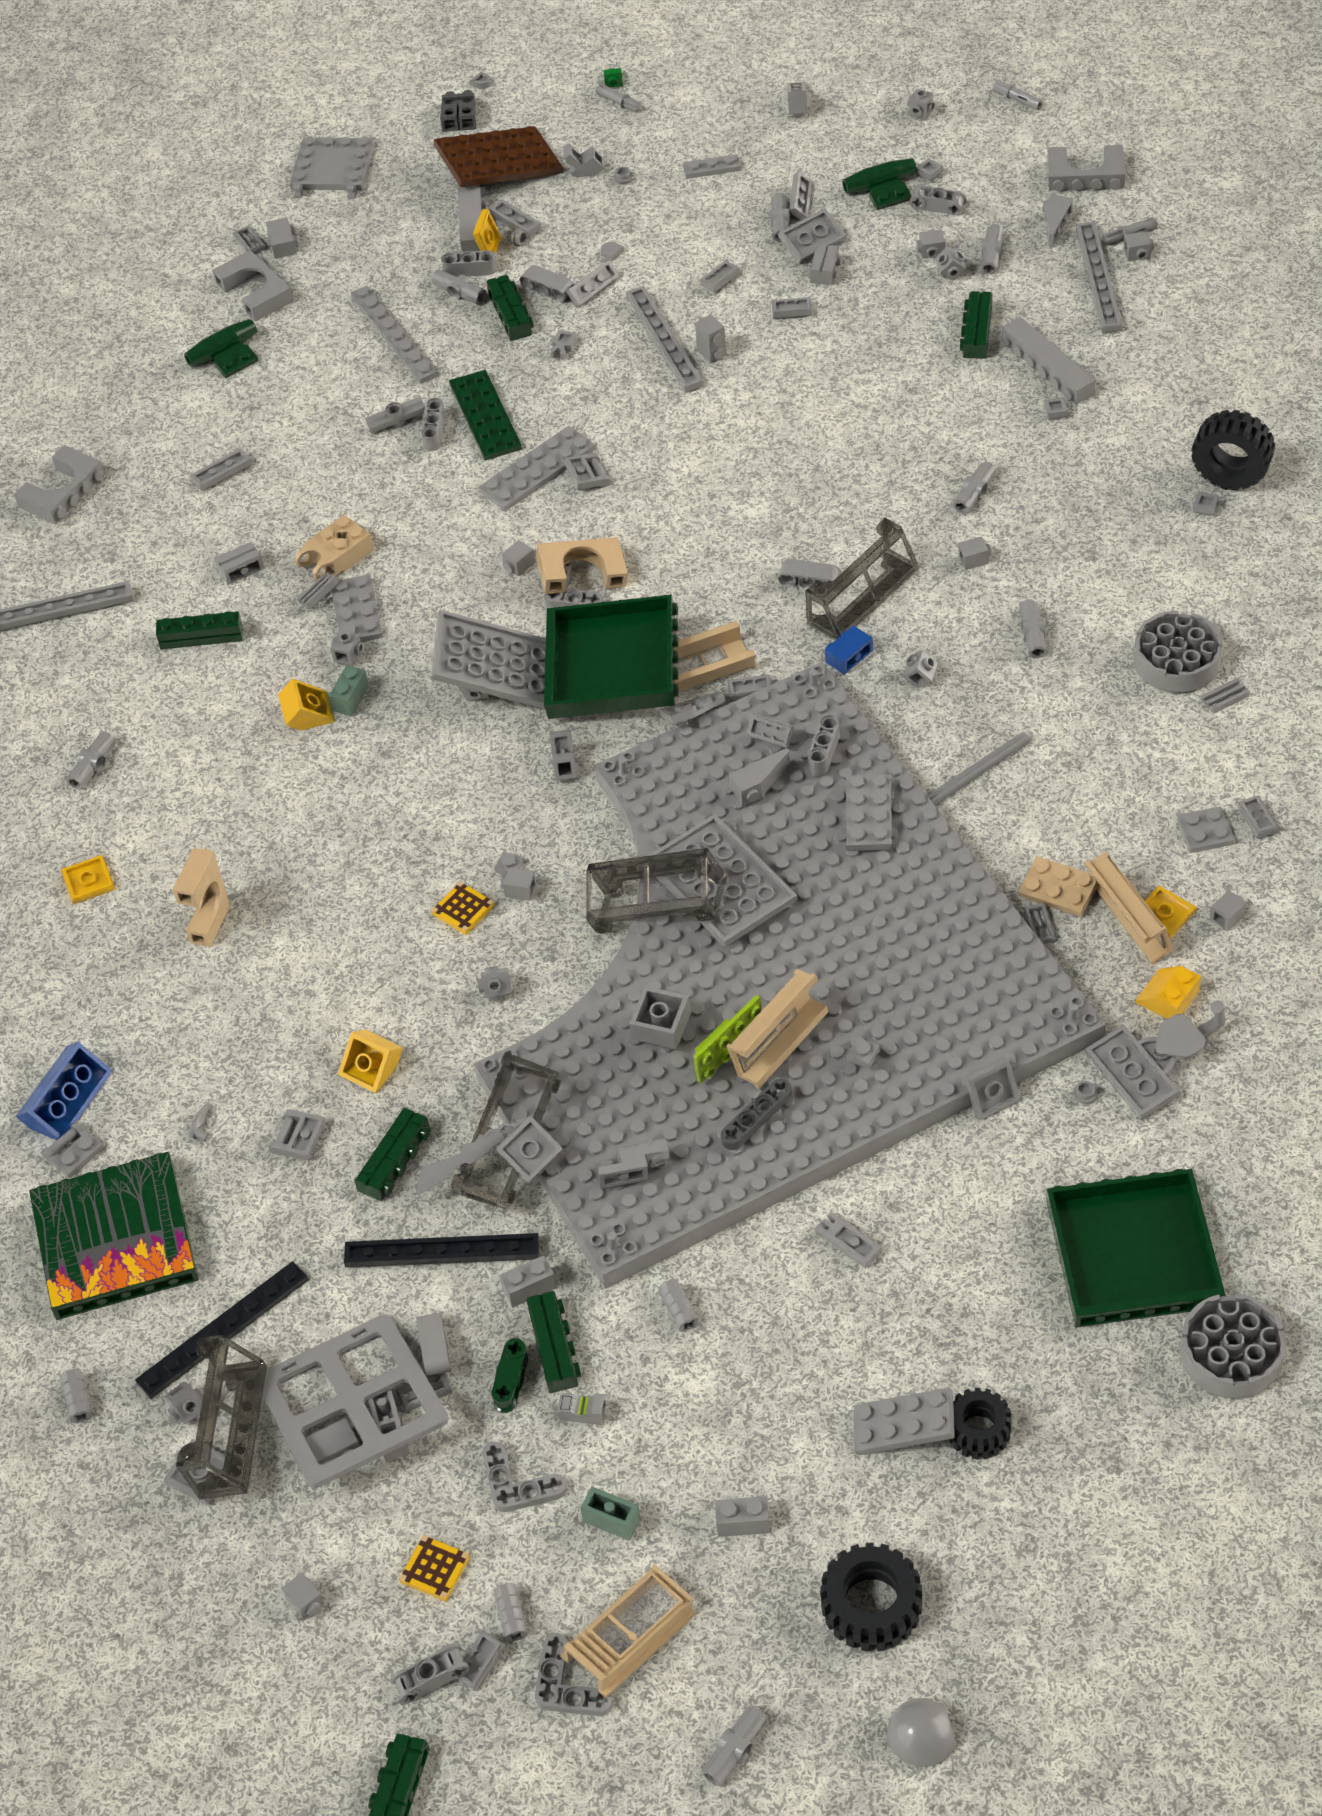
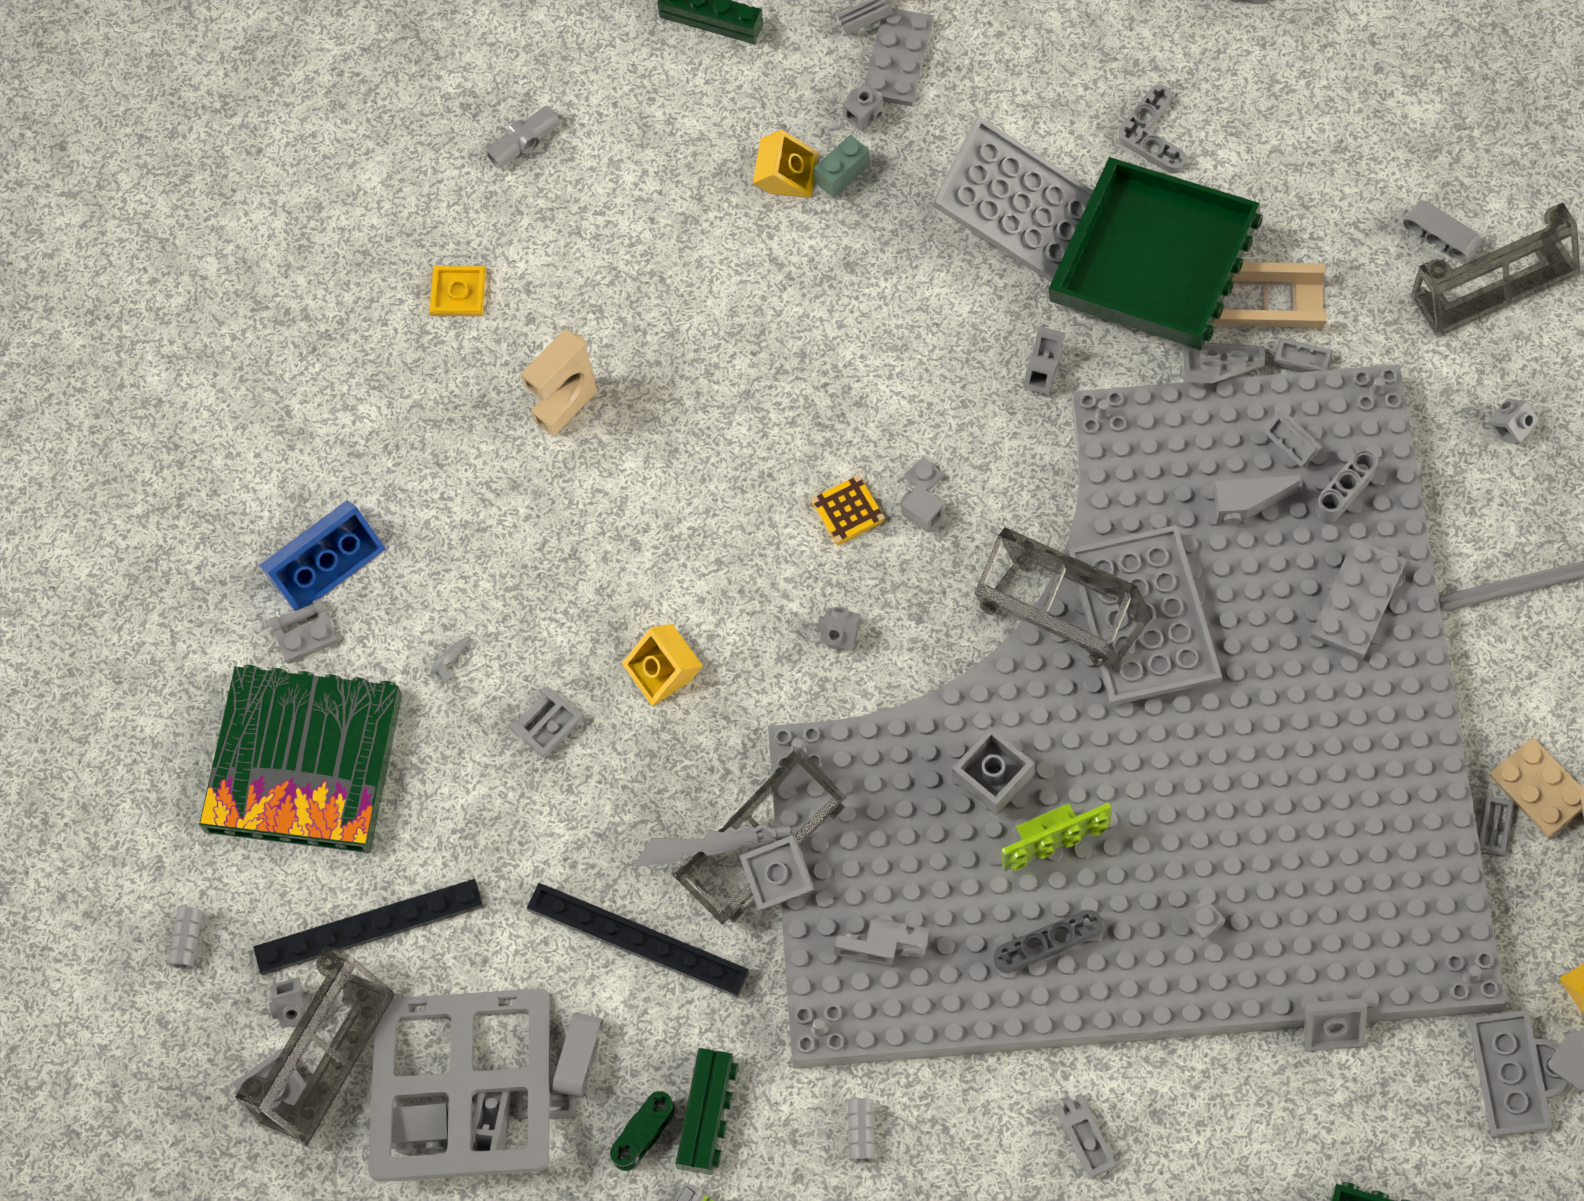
camera: 25 degrees right, 15 degrees up
(393, 1154) = (635, 796): dark green brick -> none
(518, 558) = (1111, 65): light grey brick -> none
(527, 1280) = (711, 1024): light grey brick -> none
(602, 552) = (1212, 99): tan arch -> none
(777, 1030) = (1117, 850): tan piece -> none
(848, 649) = (1441, 355): blue brick -> none
(1085, 1092) = (1442, 1073): light grey plate -> none

